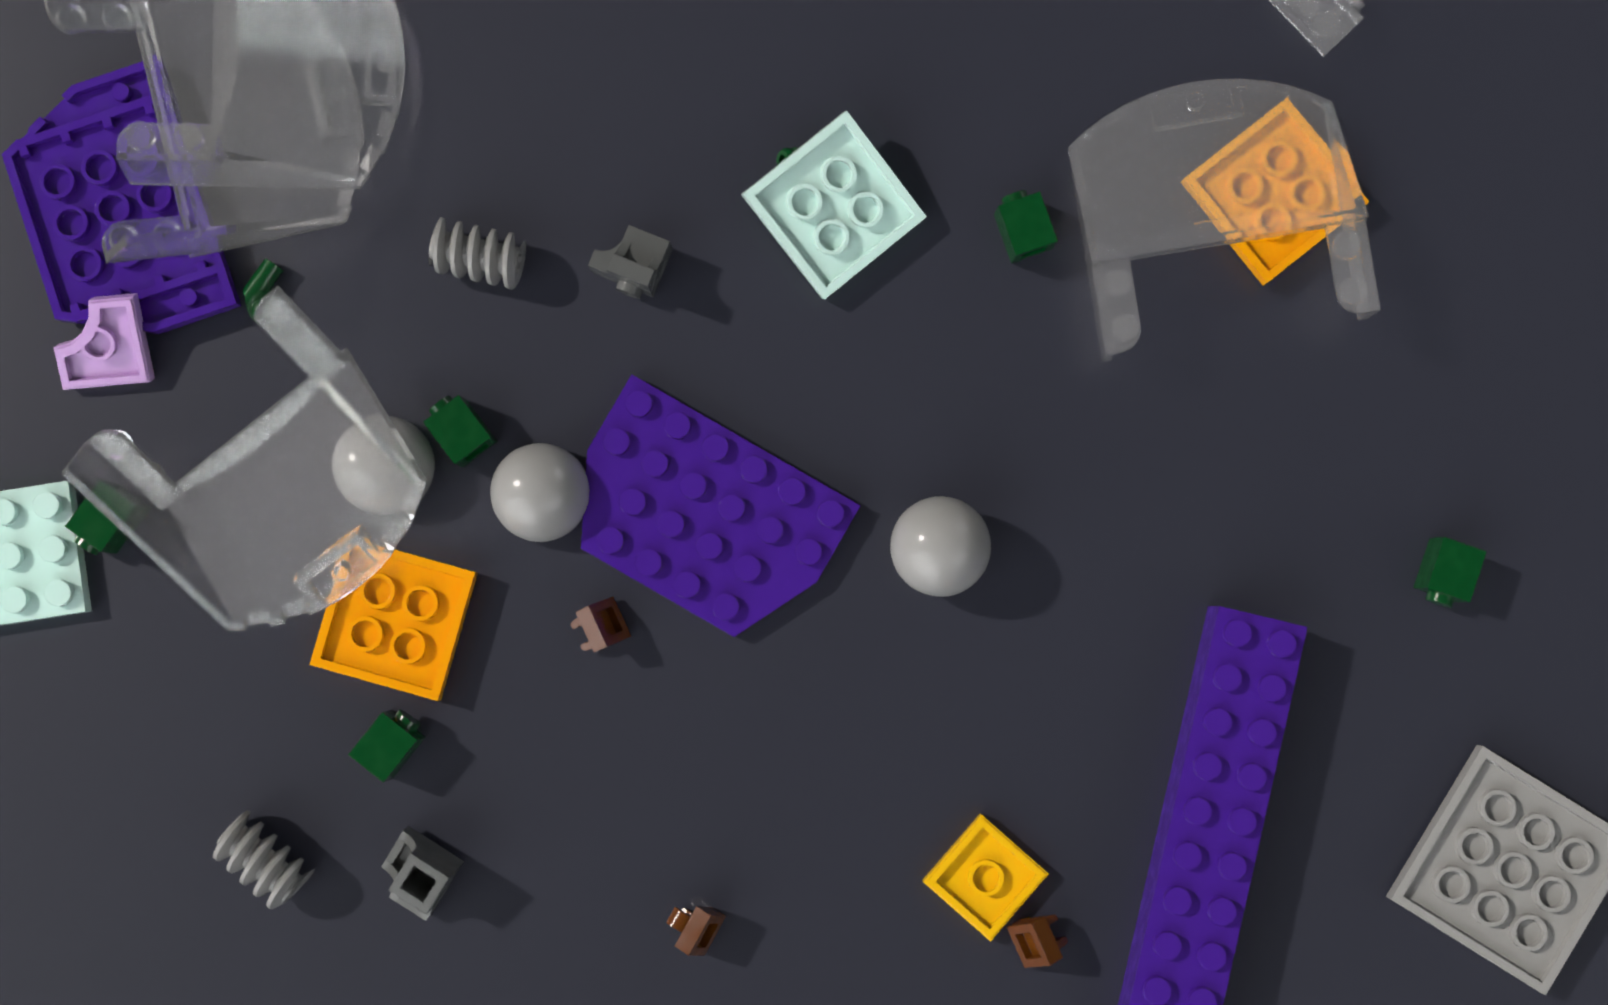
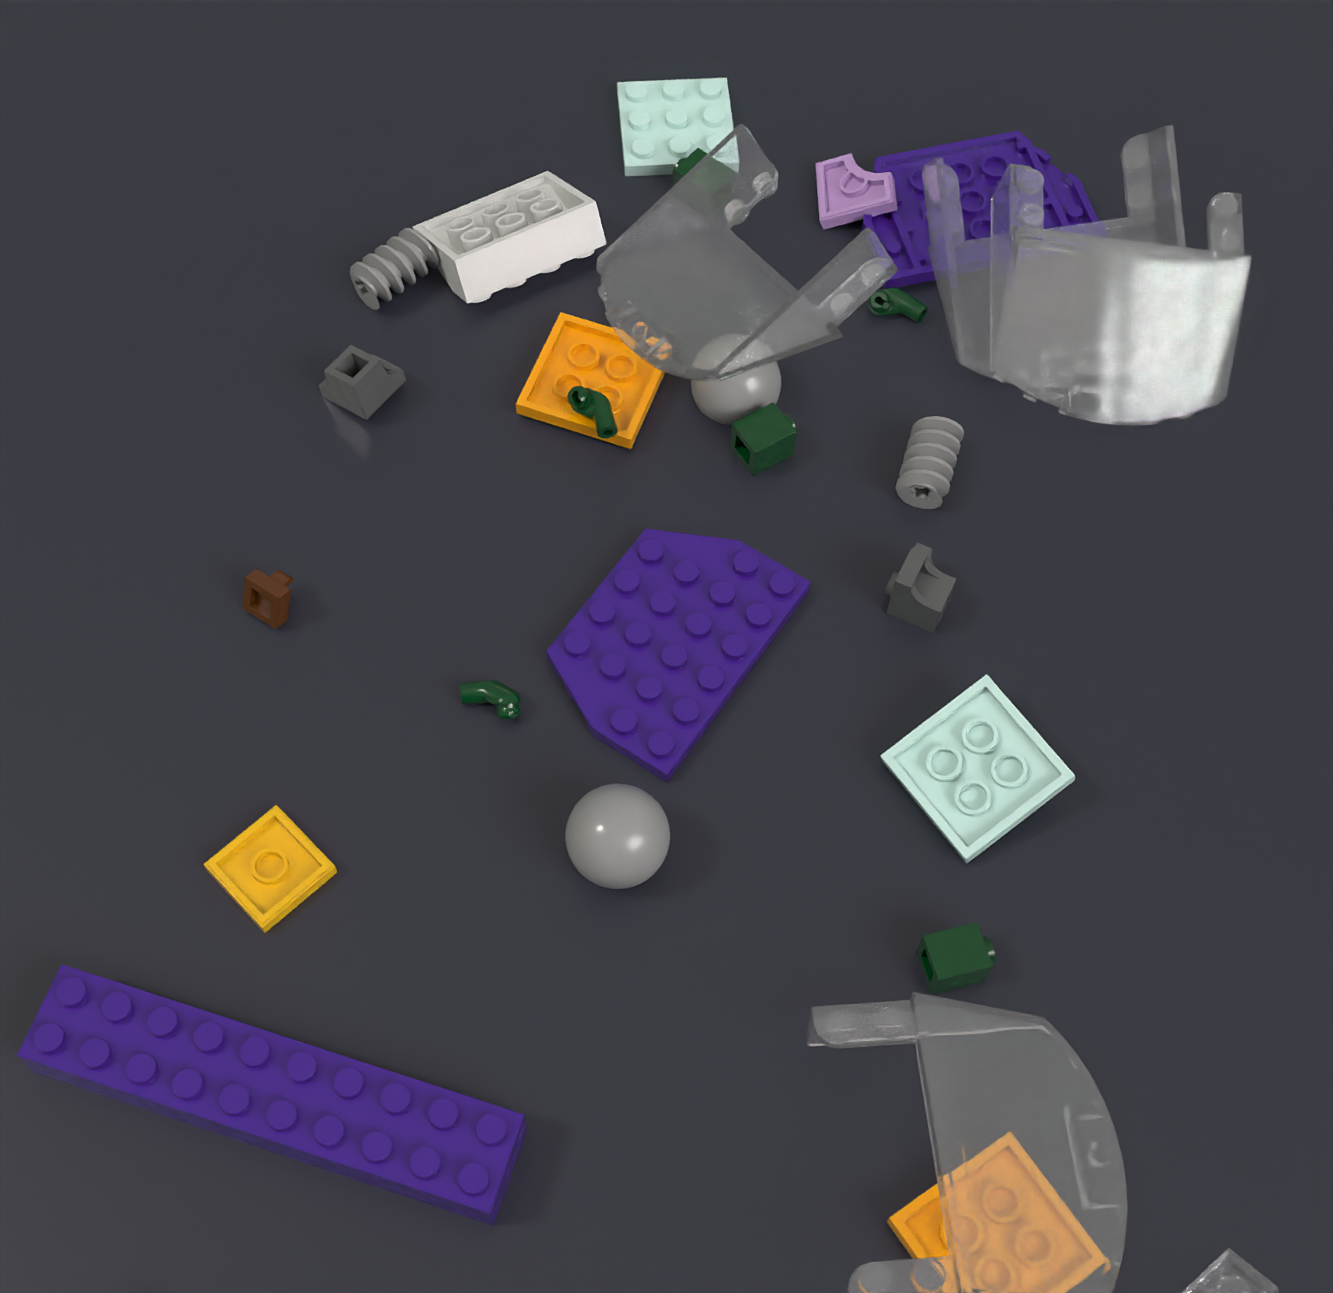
camera: 90 degrees right, 25 degrees down
(198, 734) = (513, 235): none -> white slope
(388, 744) = (480, 365): dark green brick -> none
(441, 613) = (596, 407): none -> dark green arm
(539, 492) = (702, 498): light grey piece -> none
(601, 624) = (571, 539): reddish brown tile -> none
(784, 682) = (493, 692): none -> dark green arm
(1036, 941) = (195, 905): reddish brown tile -> none

